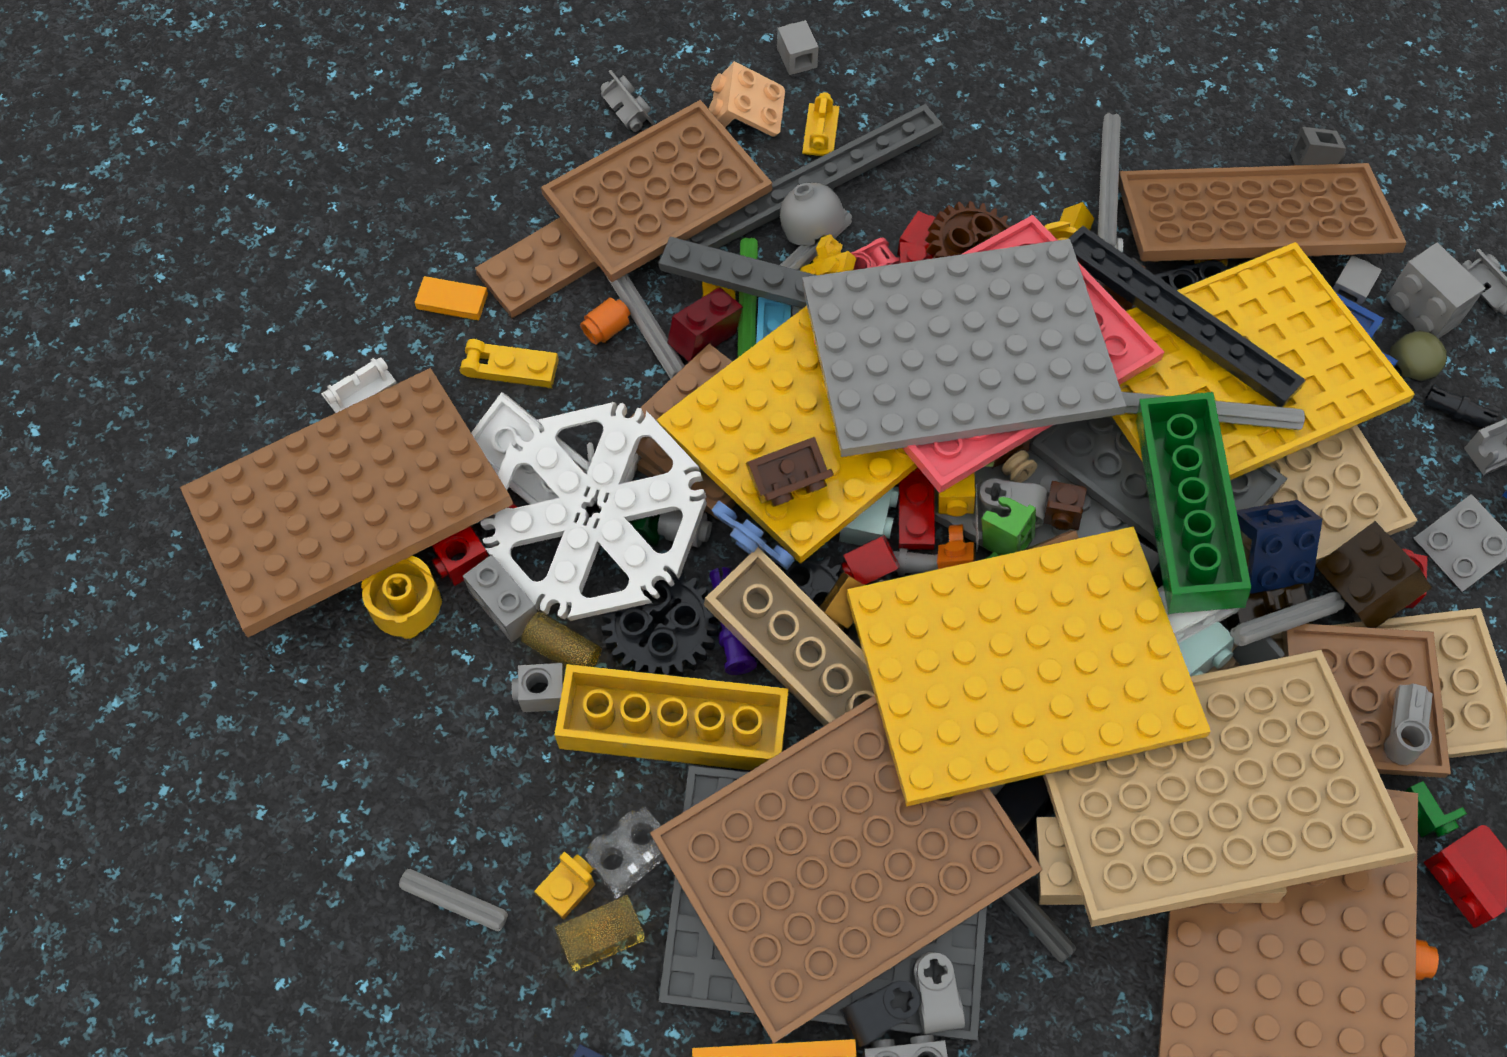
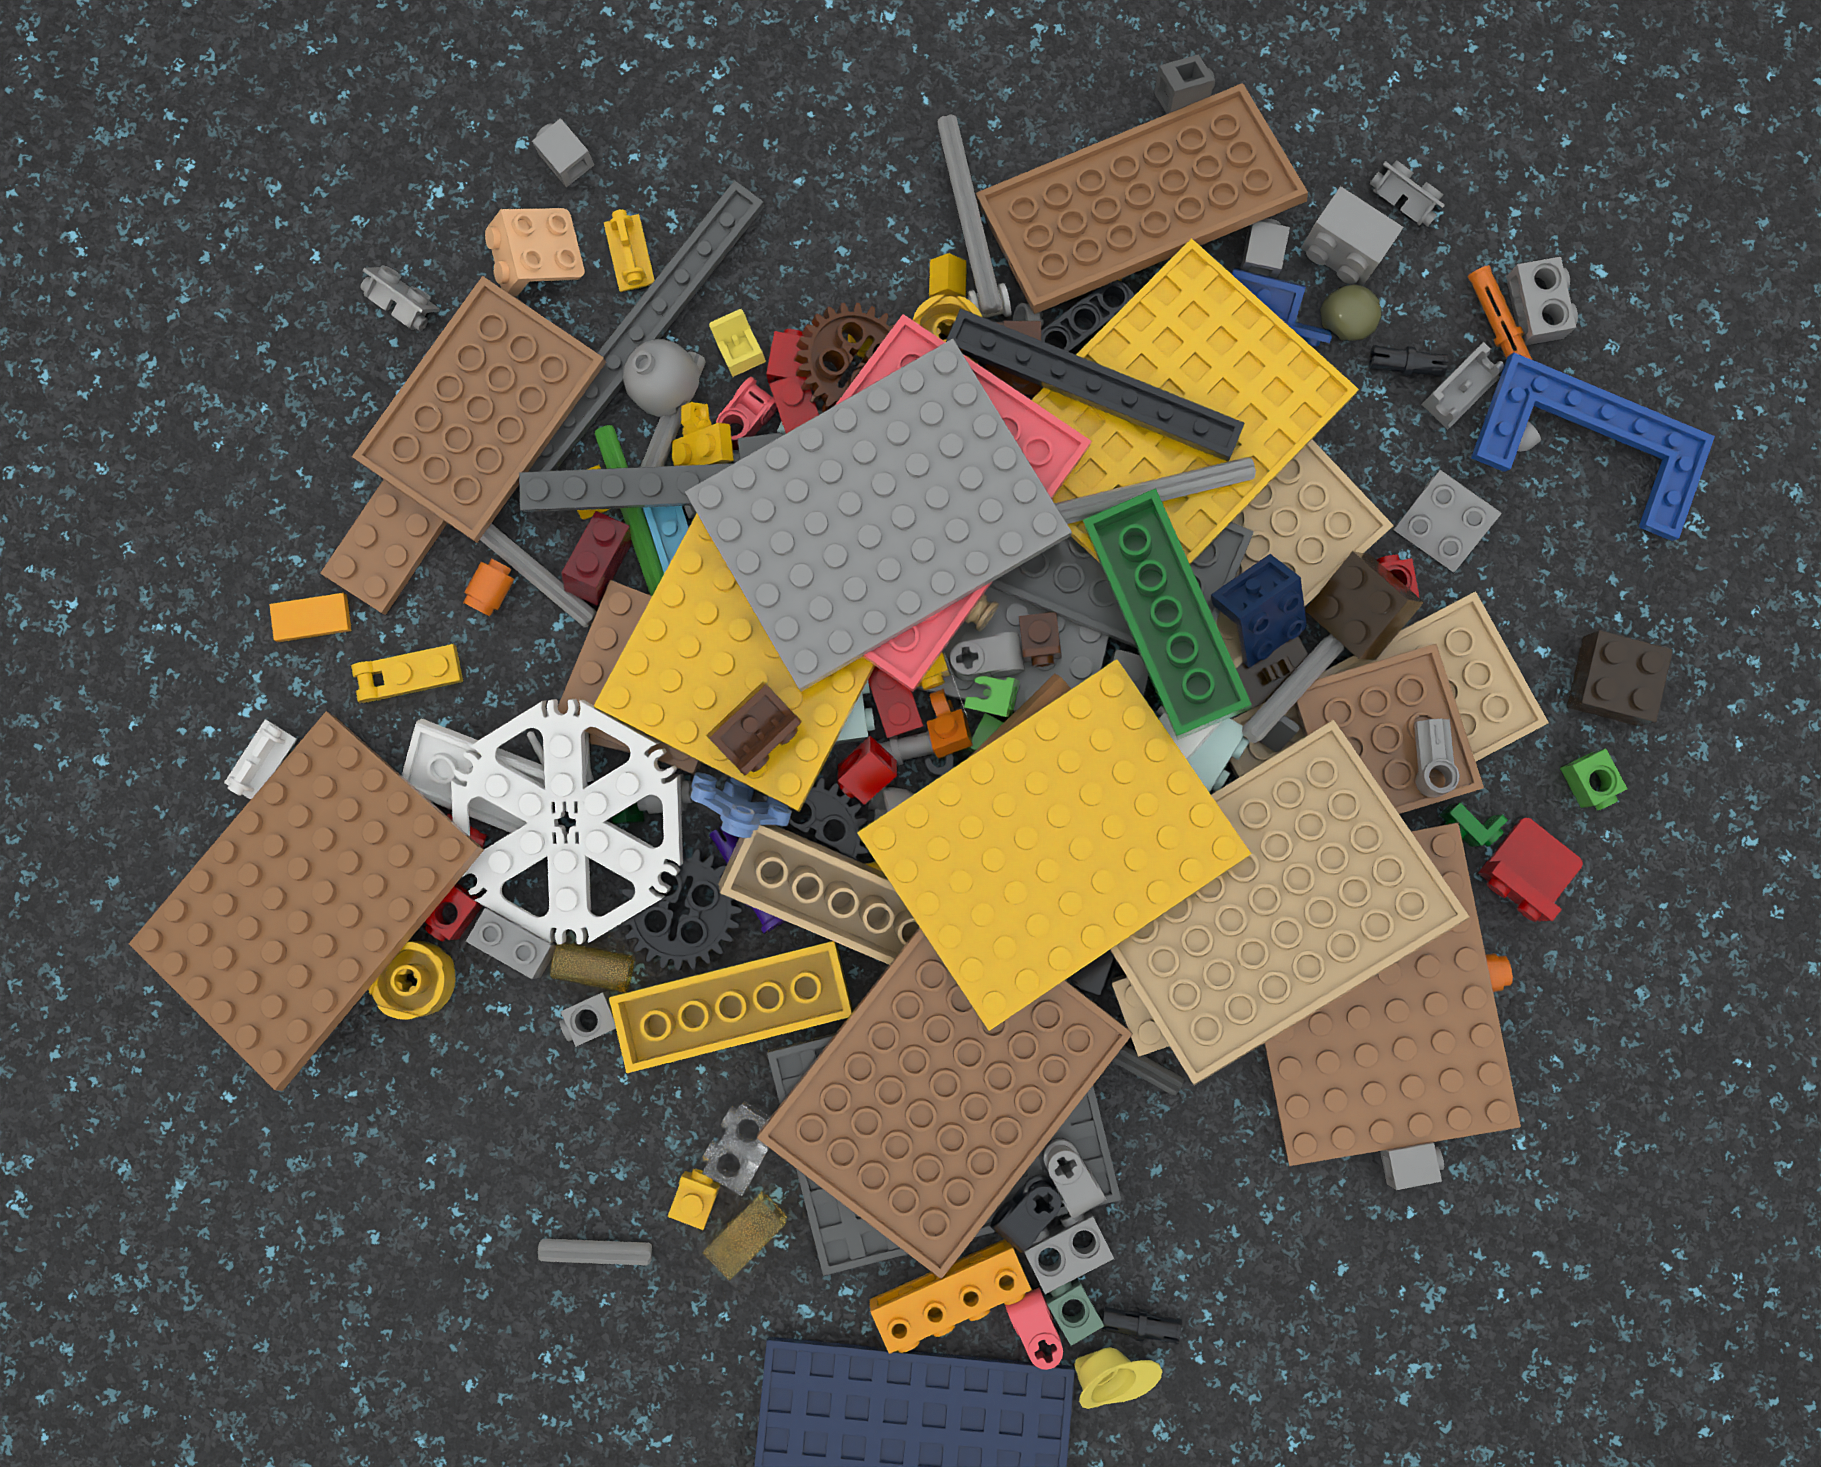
camera: 20 degrees left, 20 degrees up
(836, 603) = (852, 818): pearl gold brick -> none
(883, 212) = (737, 342): none -> light yellow bracket

